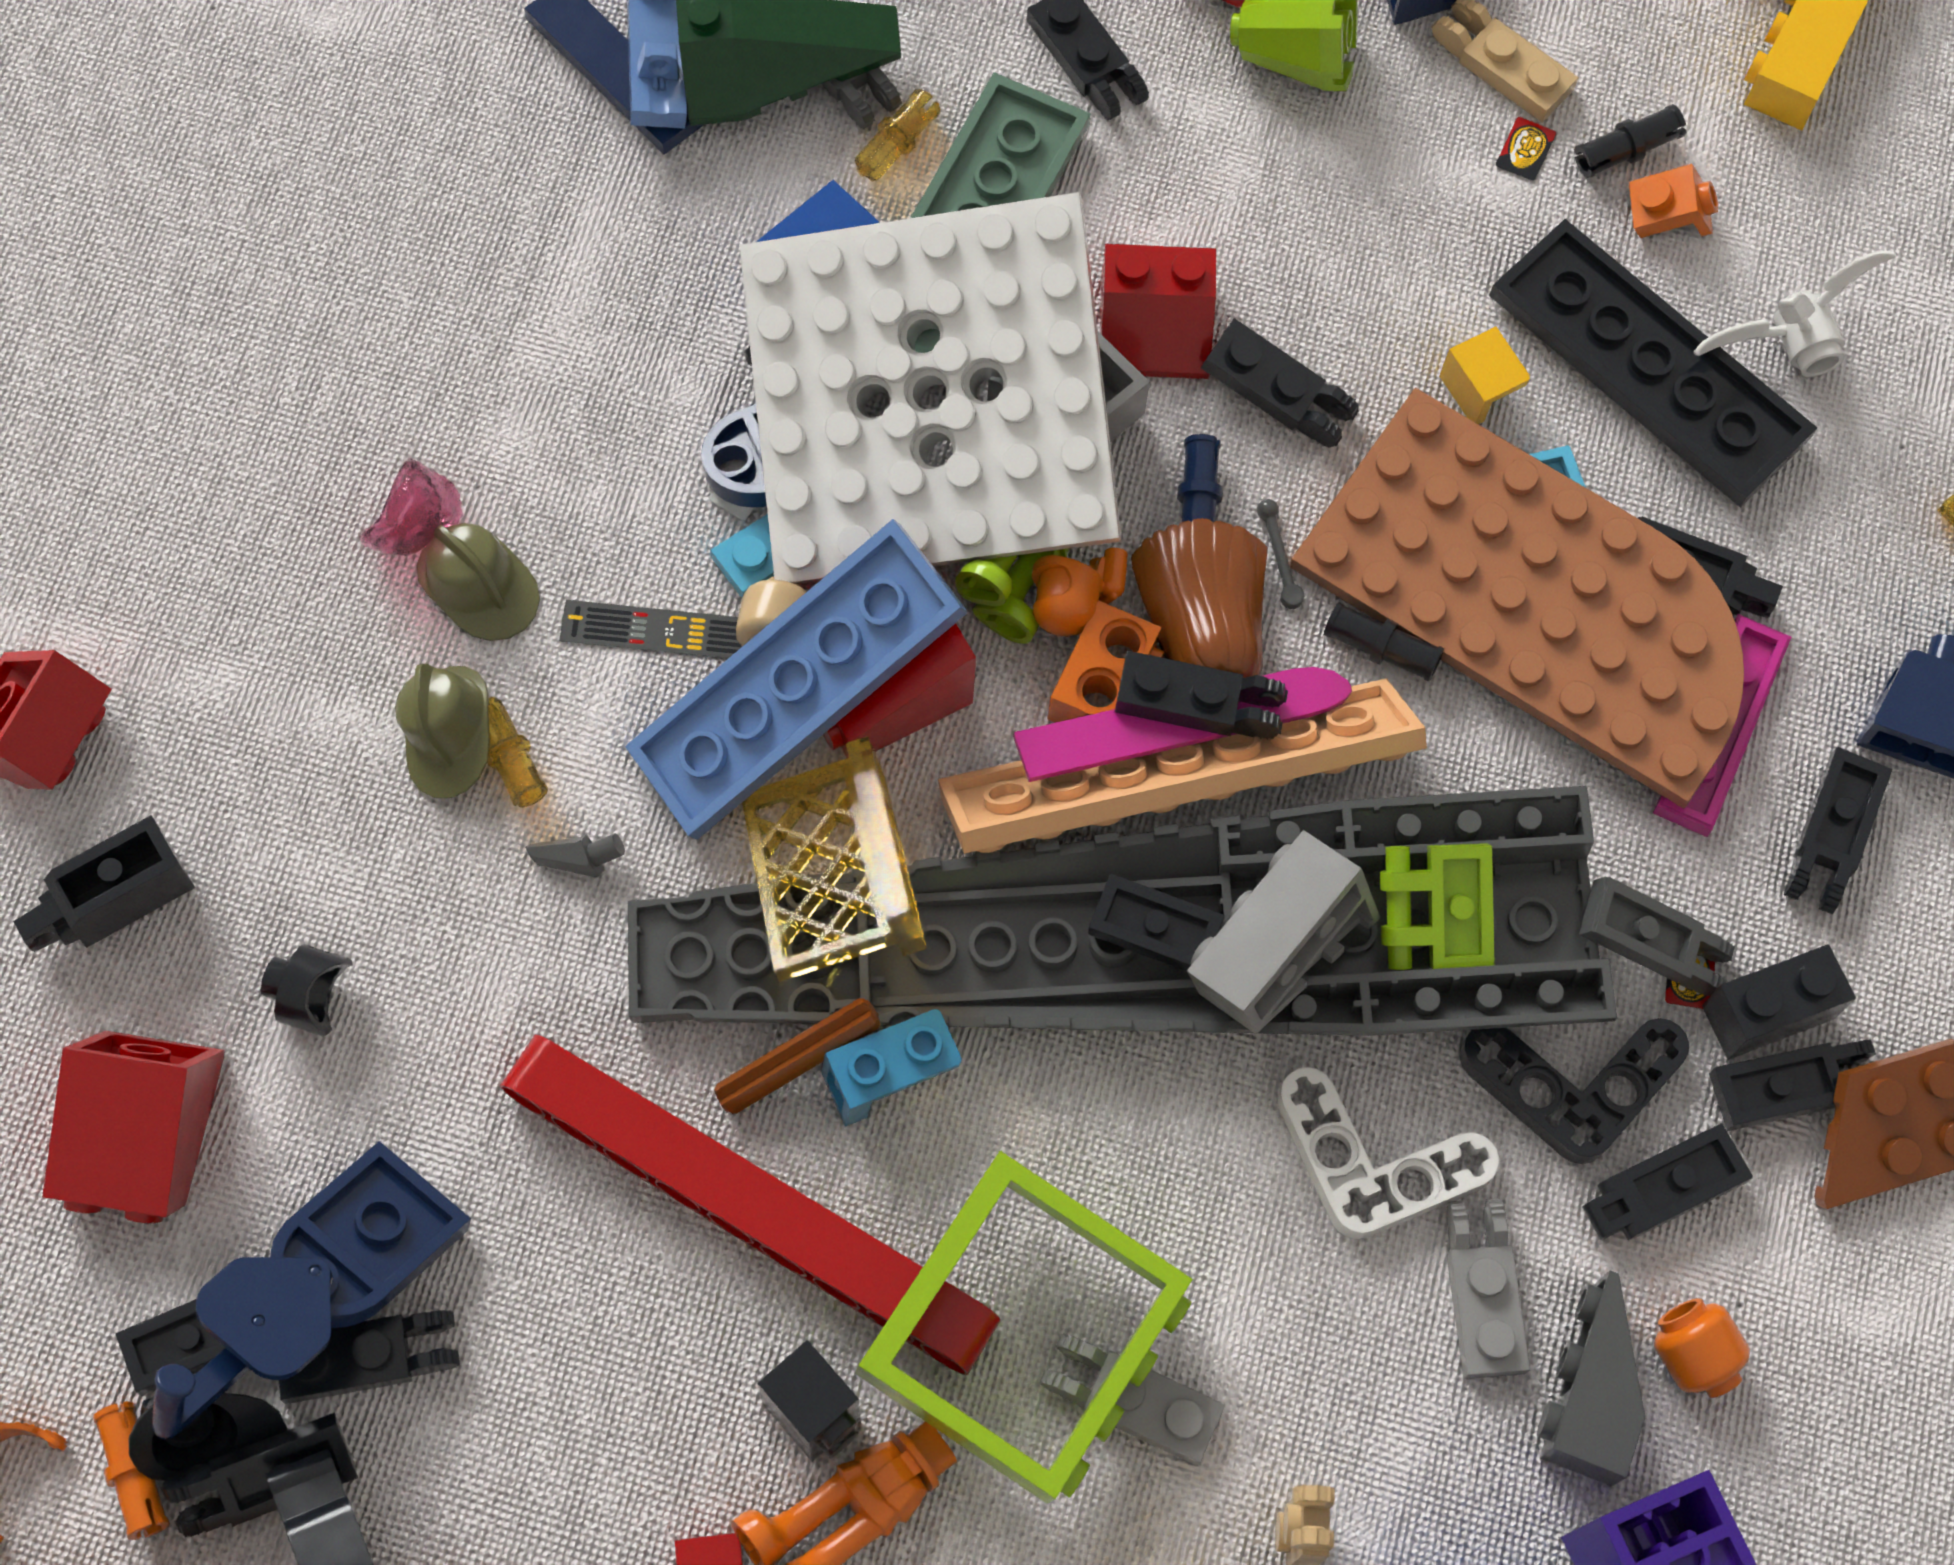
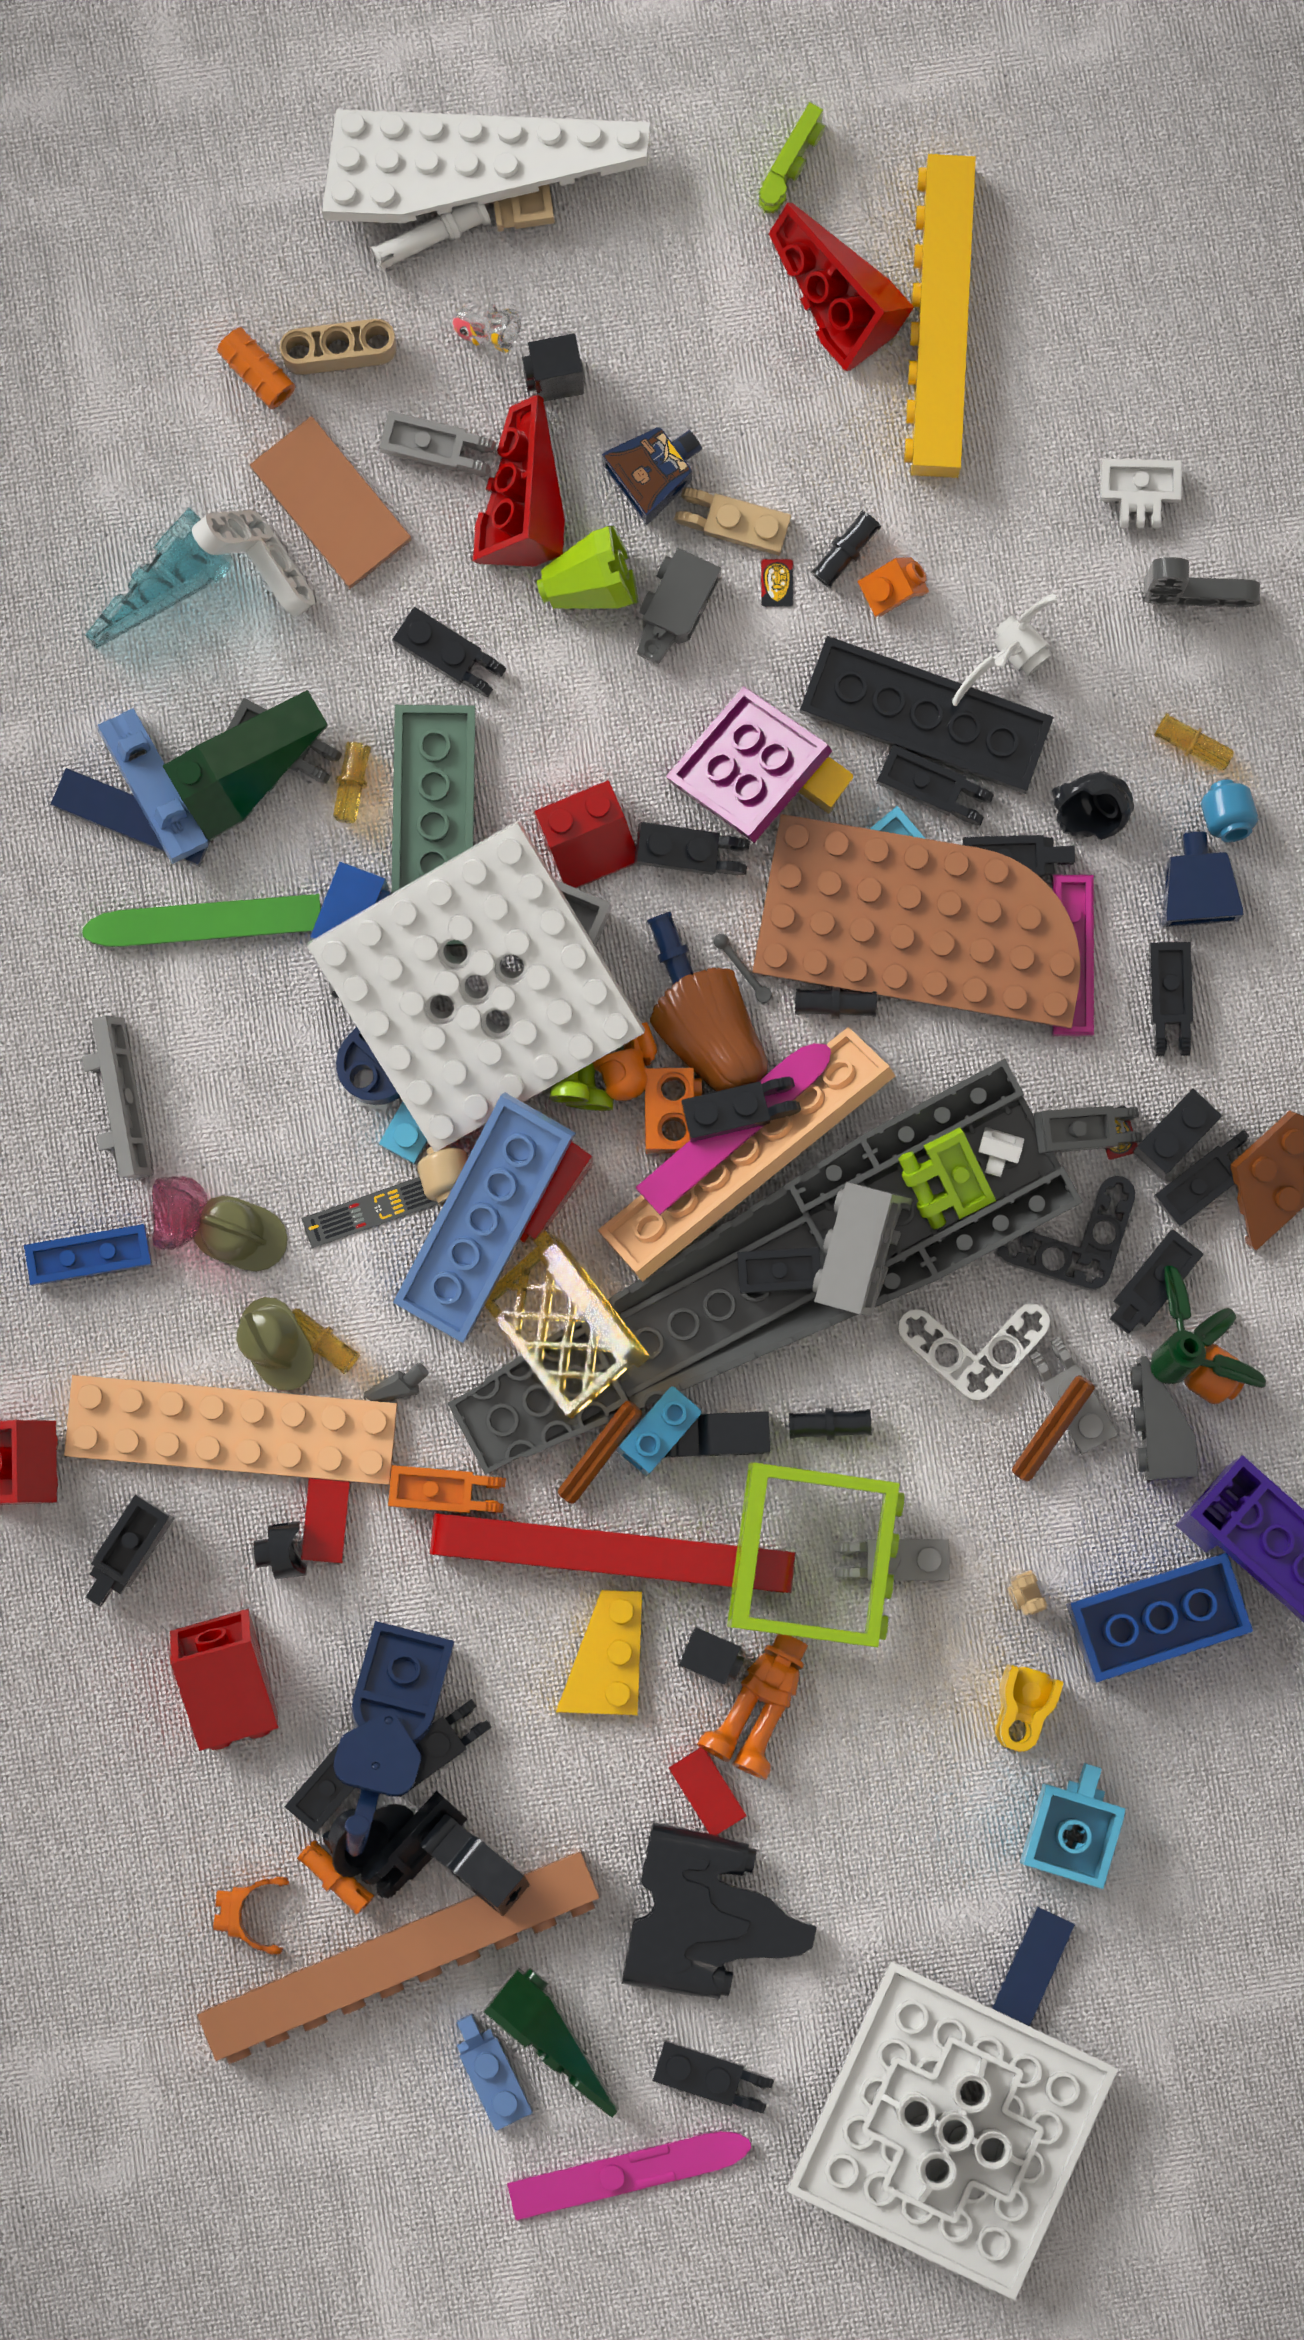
camera: 20 degrees left, 15 degrees up
(273, 517) = (88, 1255): none -> blue plate
(333, 813) = (230, 1429): none -> light nougat plate
(388, 982) = (325, 1520): none -> red tile
(412, 377) = (122, 1098): none -> light grey hinge
(561, 1011) = (440, 1490): none -> orange hinge
(621, 205) = (204, 921): none -> bright green piece
(668, 1348) = (608, 1660): none -> yellow wing
(975, 1114) = (725, 1435): none -> black piece
(1130, 1168) = (830, 1423): none -> black pin
(1394, 109) = (677, 603): none -> dark grey hinge
(1402, 311) = (749, 764): none -> plate
(1441, 1315) = (1053, 1428): none -> dark orange axle
(1528, 902) = (1000, 1147): none -> white tile
(1625, 444) = (931, 784): none -> black hinge
(1684, 1286) = (1186, 1350): none -> dark green plant
(1827, 549) = (1093, 805): none -> black hair

